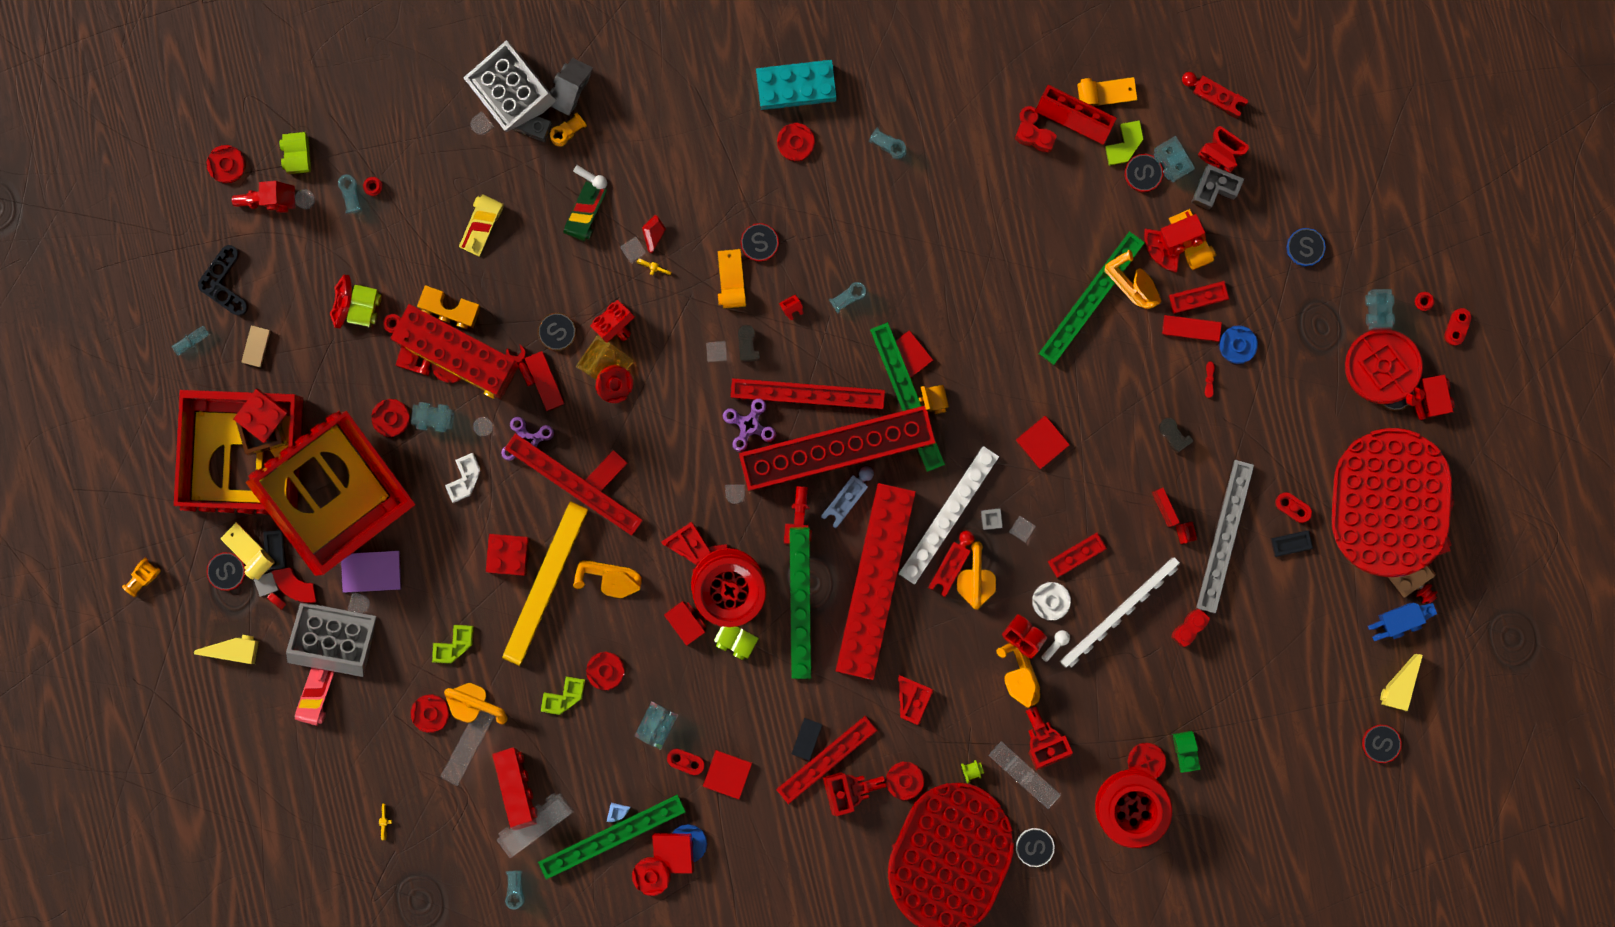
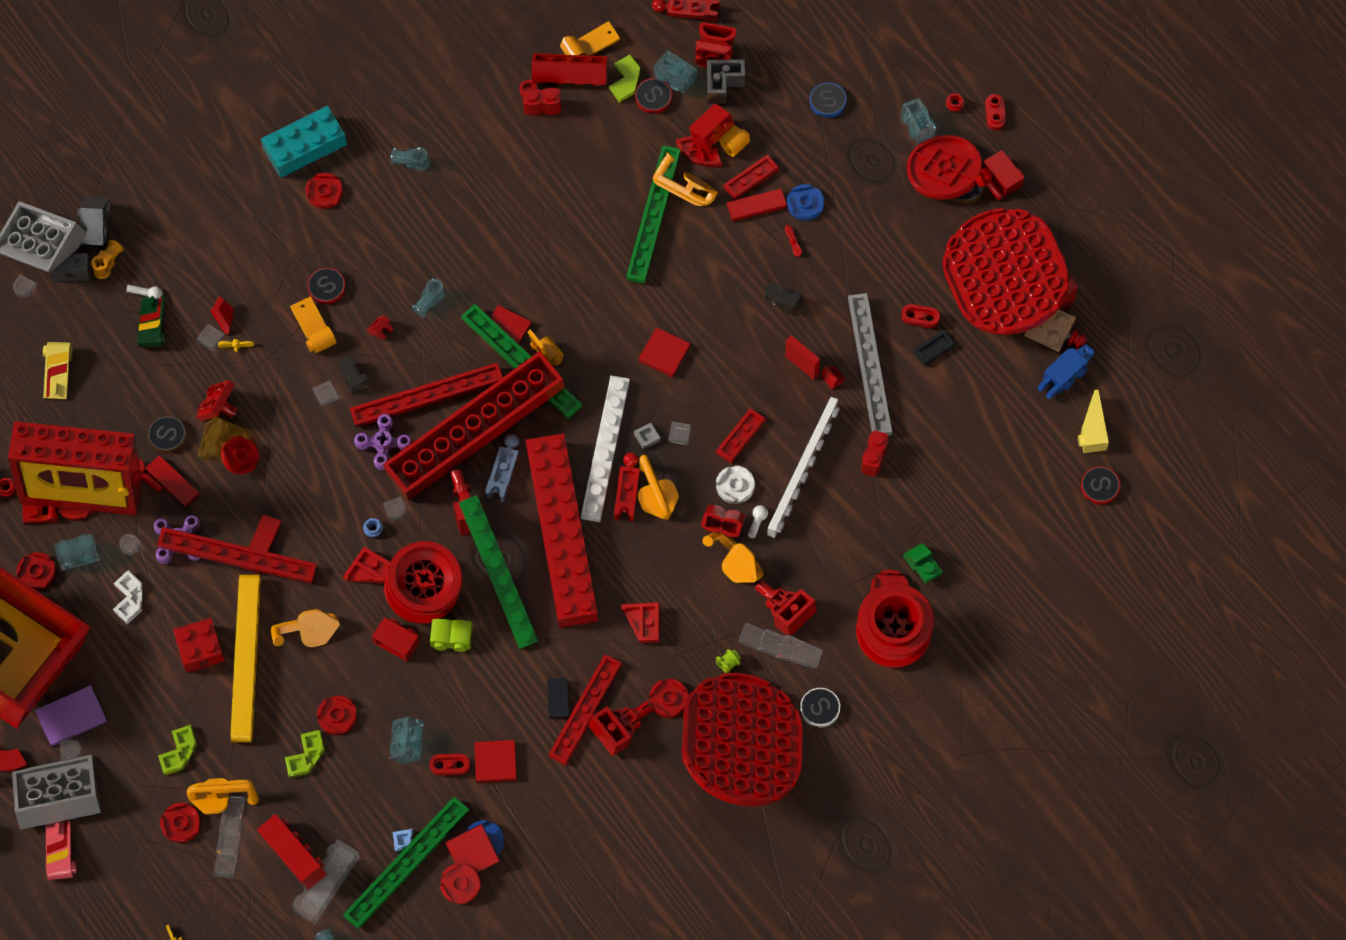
camera: 20 degrees left, 20 degrees down
(703, 499) = (373, 522): none -> medium blue plate

